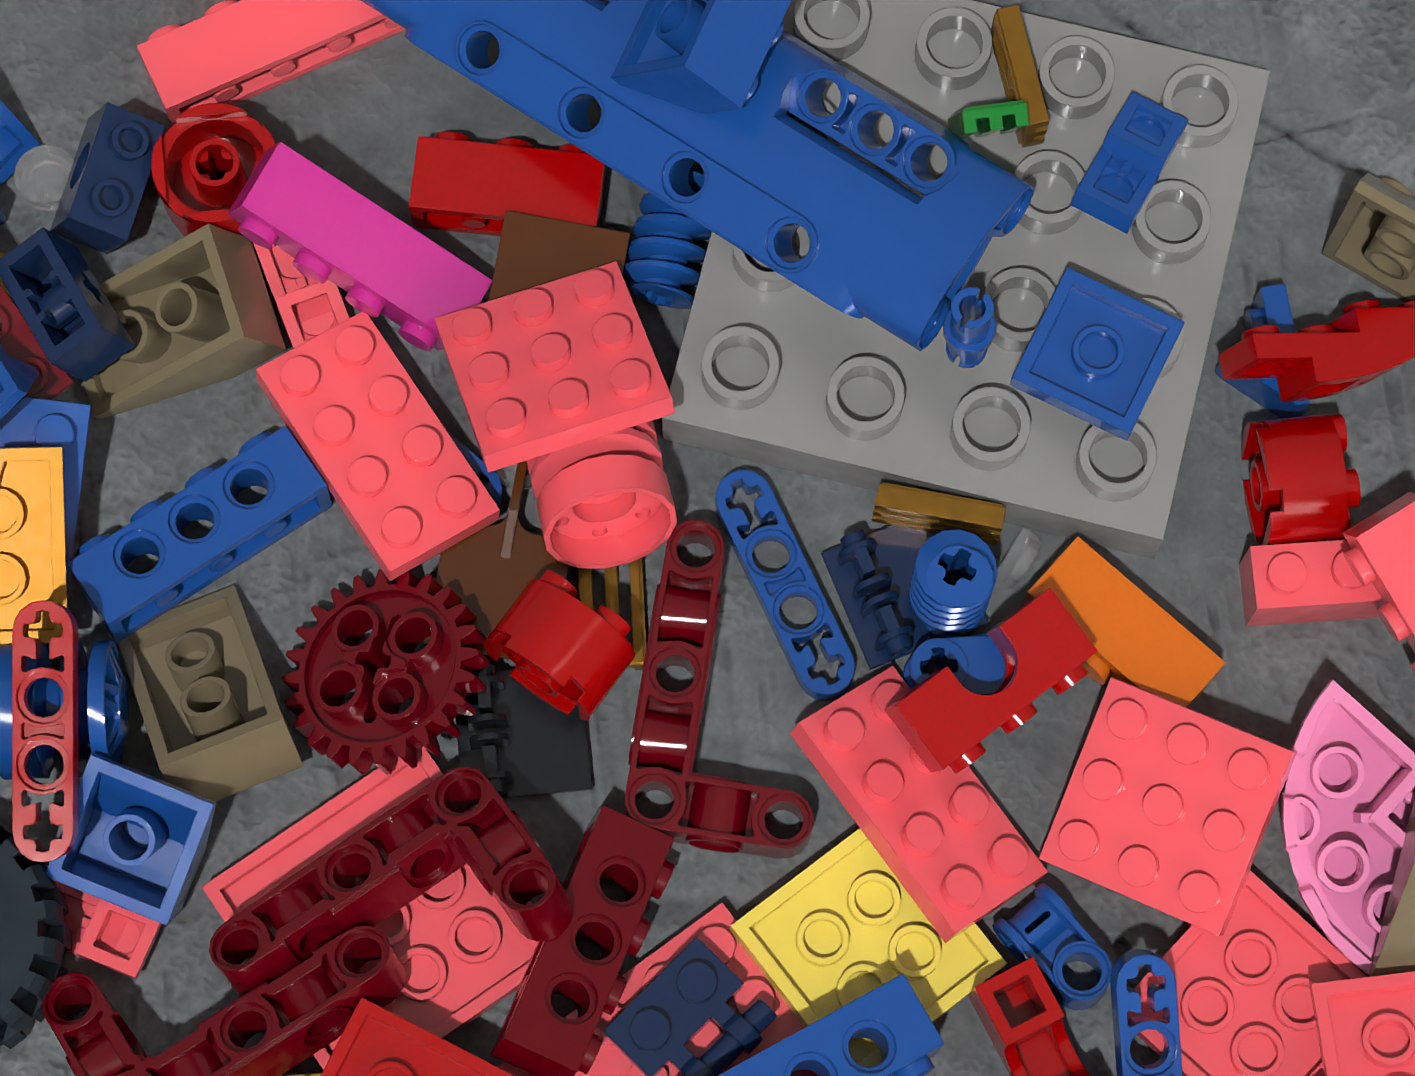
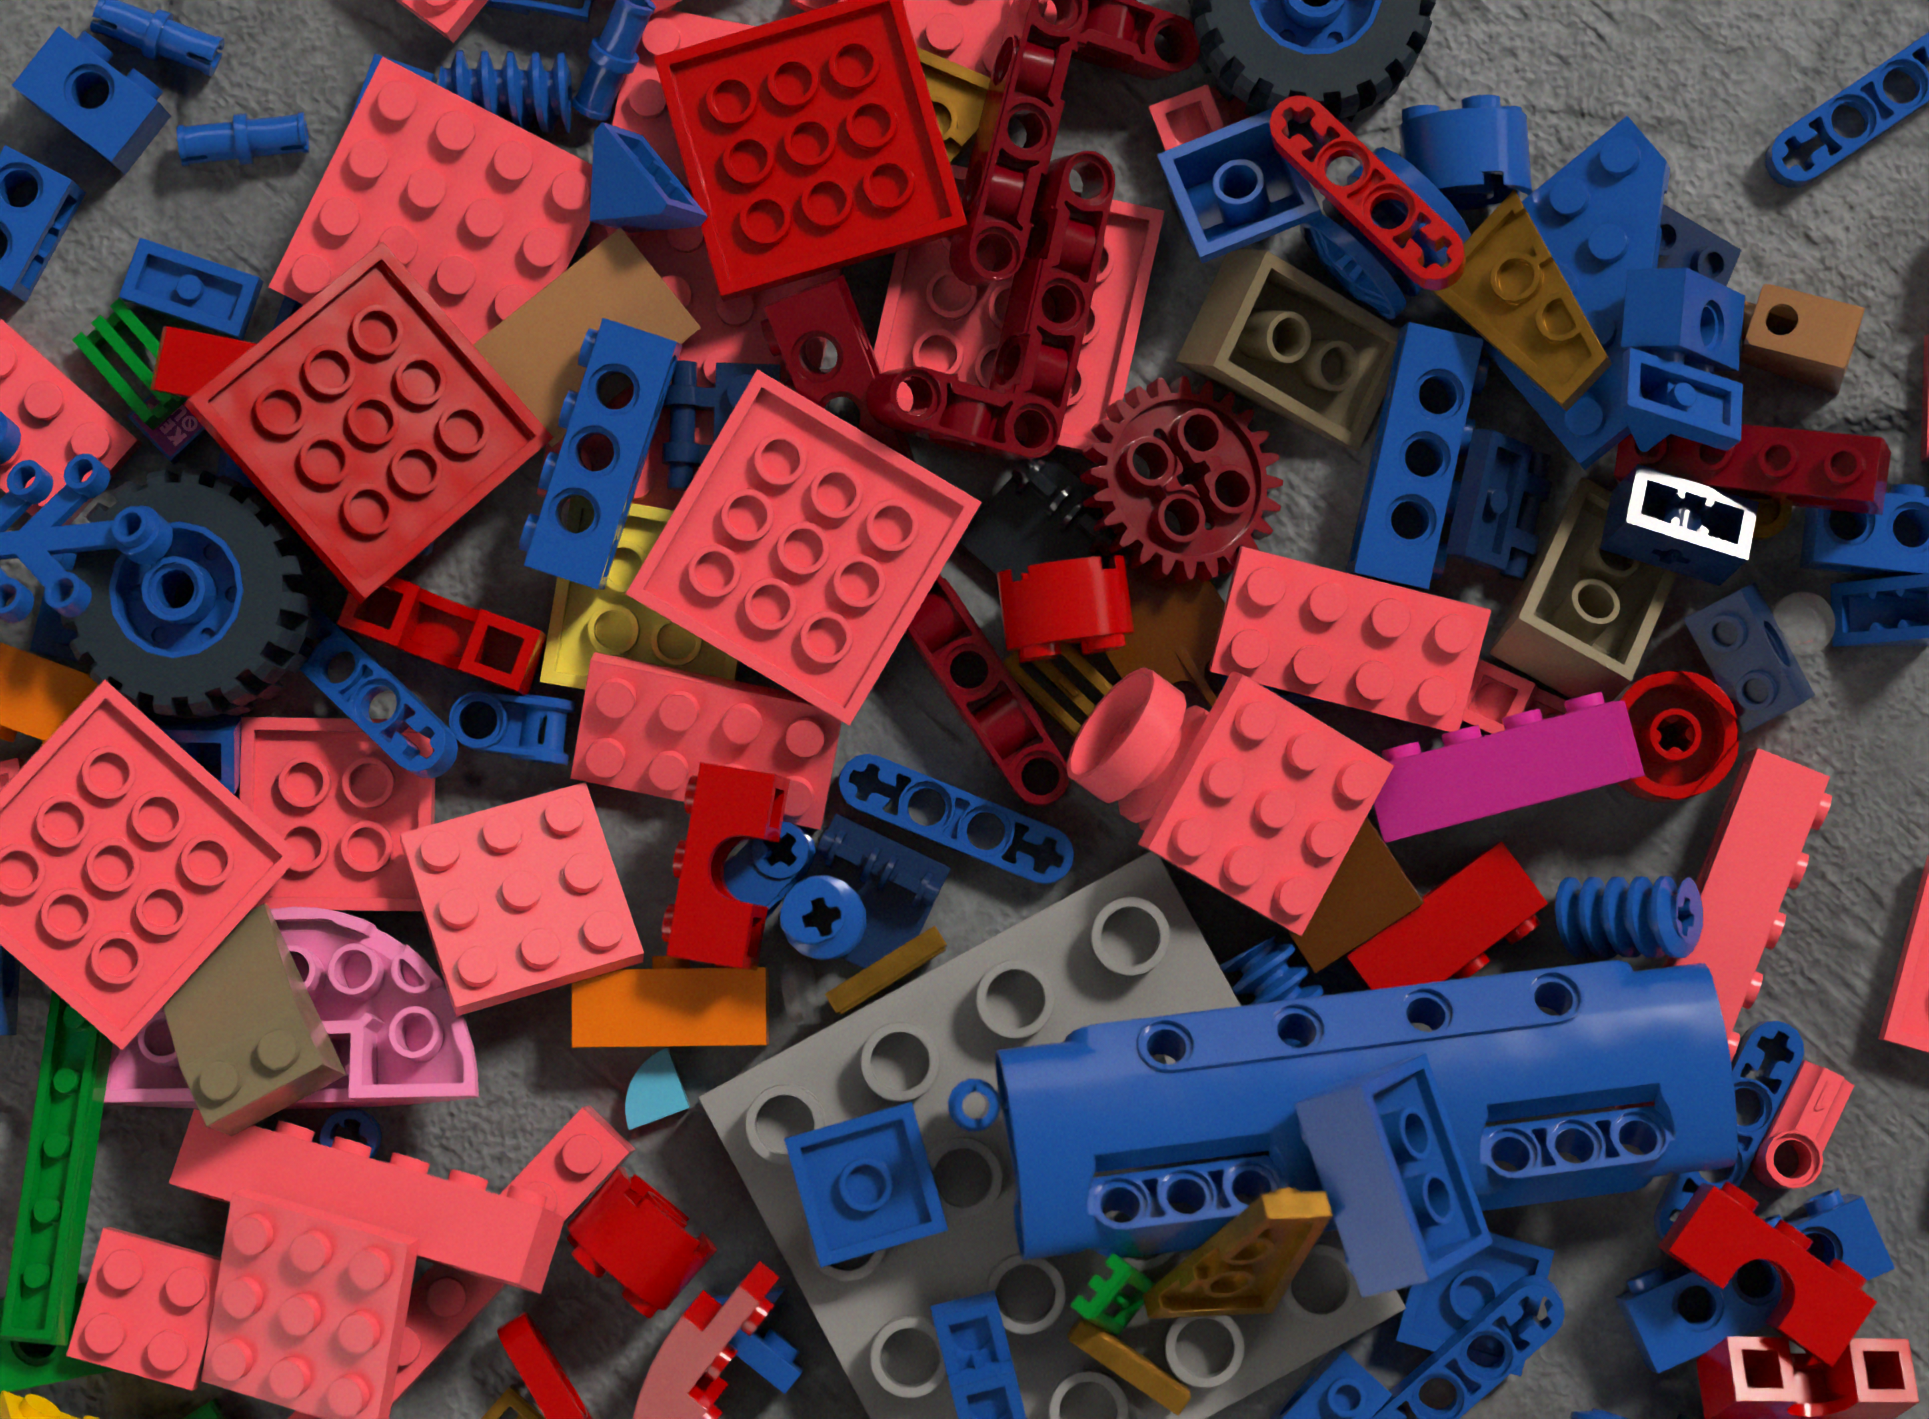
camera: 140 degrees right, 10 degrees up
(174, 443) = (1499, 504): none -> dark blue plate
(375, 74) = (1628, 917): none -> blue piece
(716, 864) = (803, 547): none -> coral plate
(873, 54) = (1246, 1261): none -> pearl gold wing
(1190, 587) = (655, 1091): none -> medium azure tile

